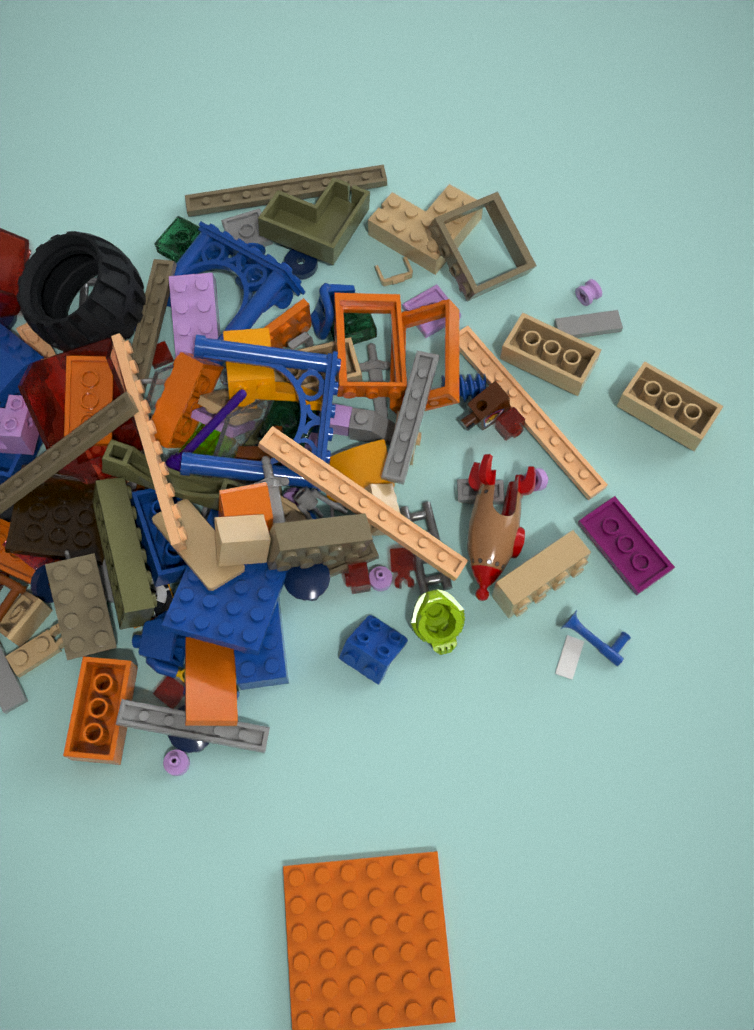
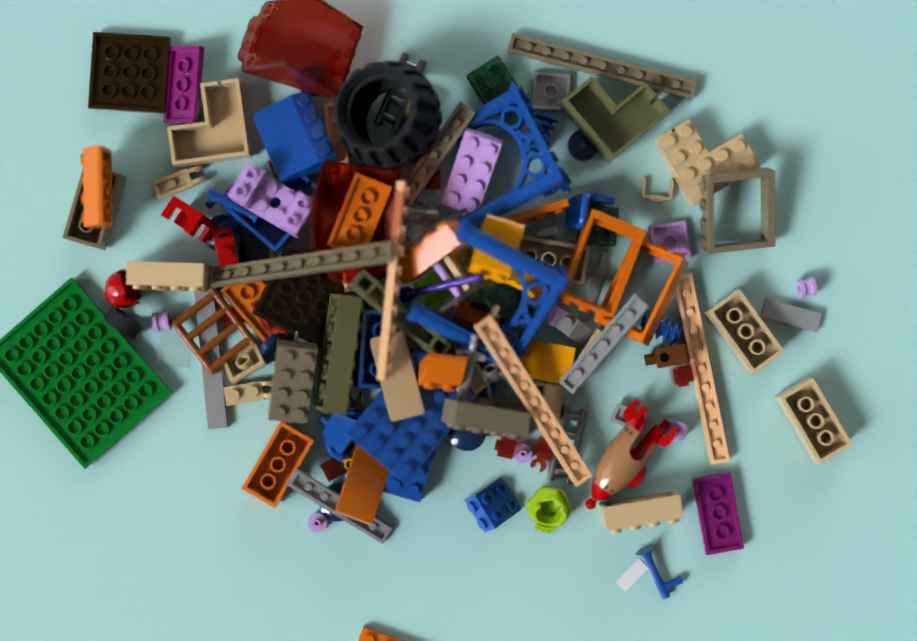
camera: 20 degrees right, 20 degrees up
(241, 540) = (430, 393): tan slope -> none

